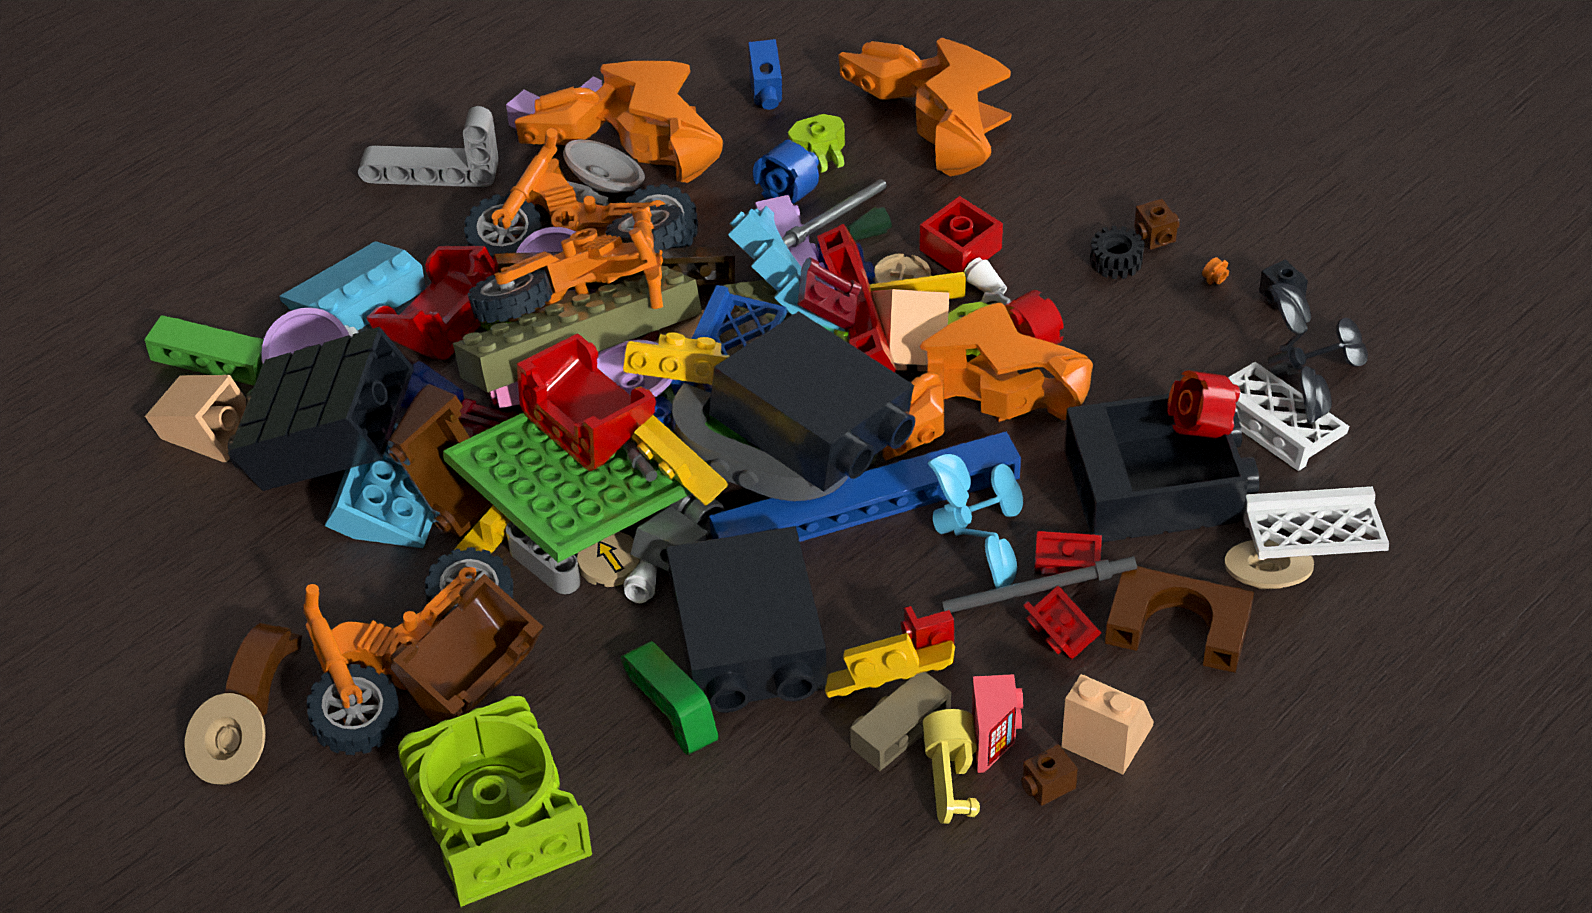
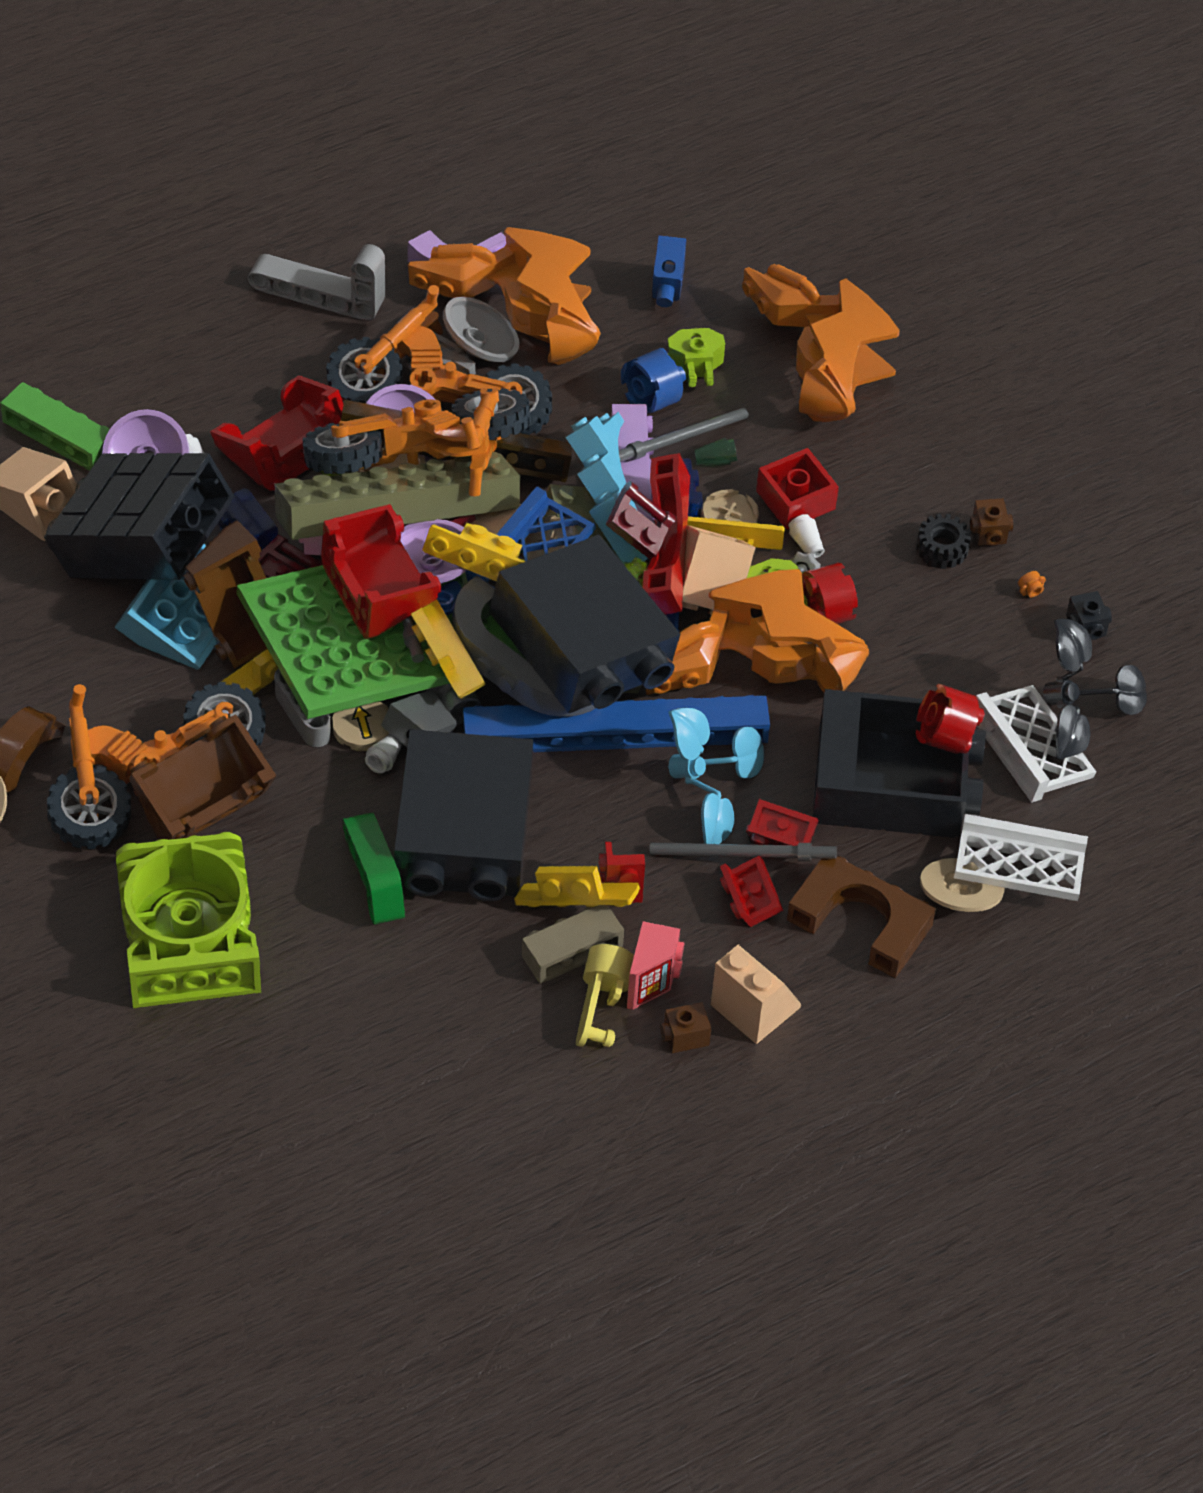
camera: 10 degrees right, 5 degrees up
(360, 284) = (214, 394): medium azure slope -> none

